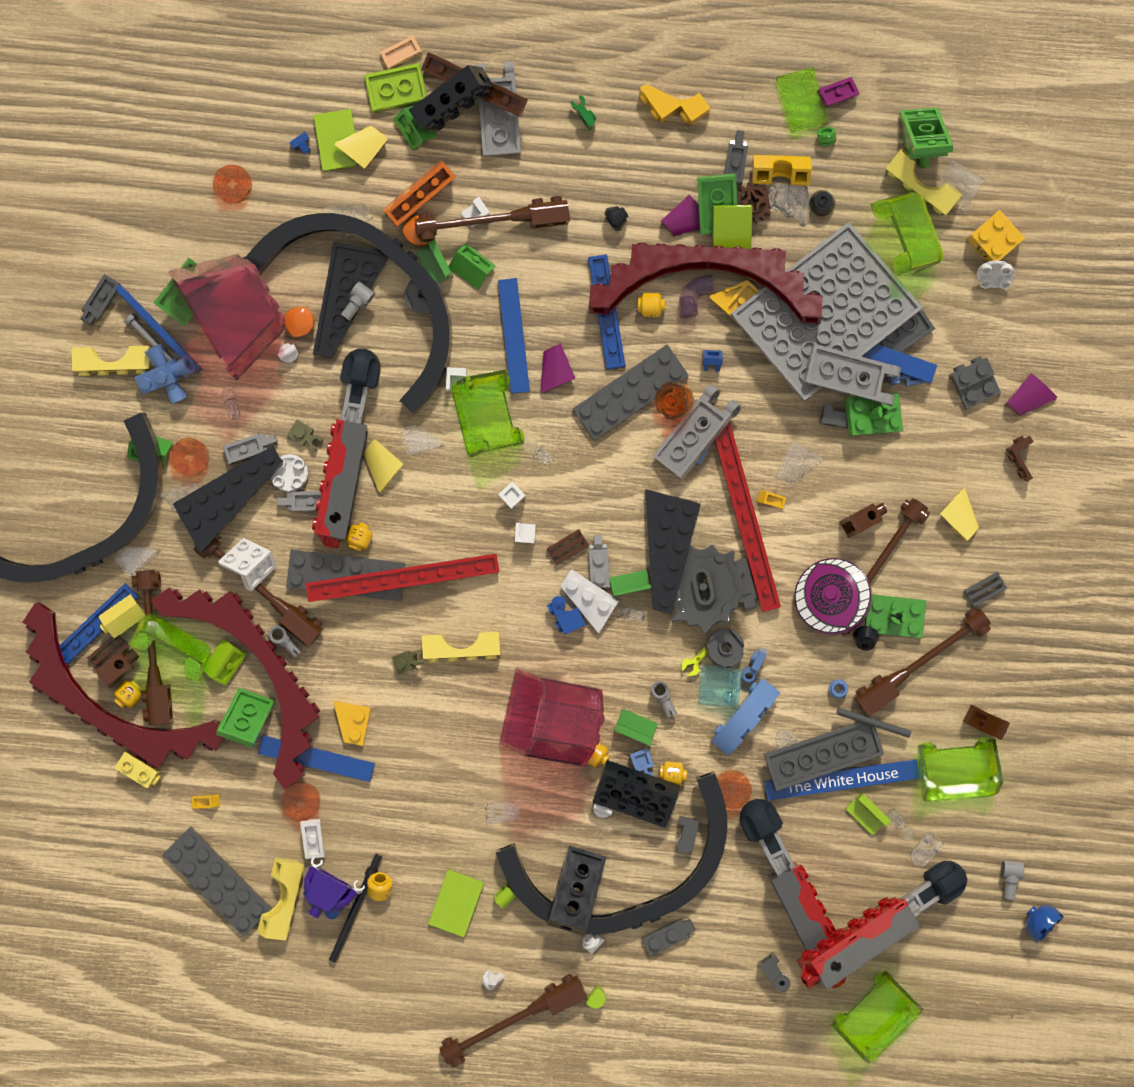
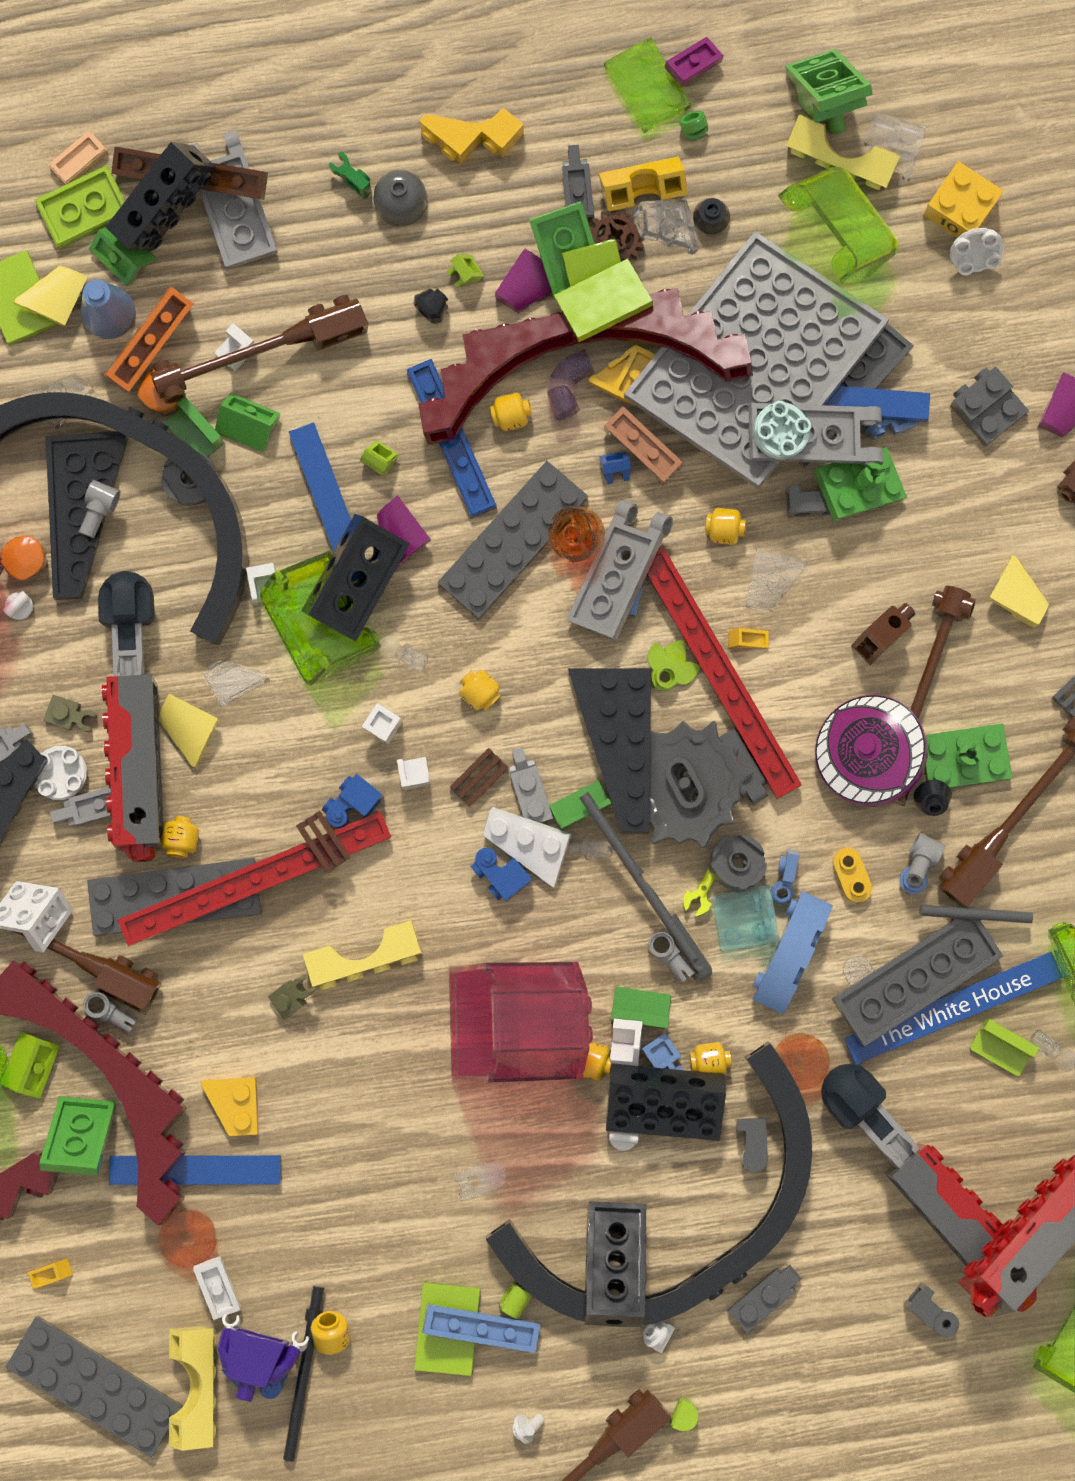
camera: 10 degrees left, 5 degrees down
(395, 165) = (106, 309): none -> medium blue cone
(448, 549) = (310, 821): none -> reddish brown tile
(478, 908) = (481, 1328): none -> medium blue plate
(482, 538) = (355, 795): none -> blue brick
(523, 404) = (373, 579): none -> black brick
(554, 313) = (379, 458): none -> lime brick
(582, 488) = (479, 690): none -> yellow head
(613, 136) = (400, 197): none -> dark grey cylinder
(620, 748) = (626, 1042): none -> white panel
(646, 198) = (466, 268): none -> lime tile
(672, 680) = (672, 923): none -> dark grey bar
(716, 502) = (672, 662): none -> lime plate
(733, 246) = (603, 300): none -> lime tile
(734, 350) = (643, 445): none -> nougat container
(775, 420) = (725, 526): none -> yellow head
(798, 675) = (850, 875): none -> yellow plate
(829, 368) = (781, 430): none -> light aqua tile
(850, 675) = (925, 855): none -> light grey pin

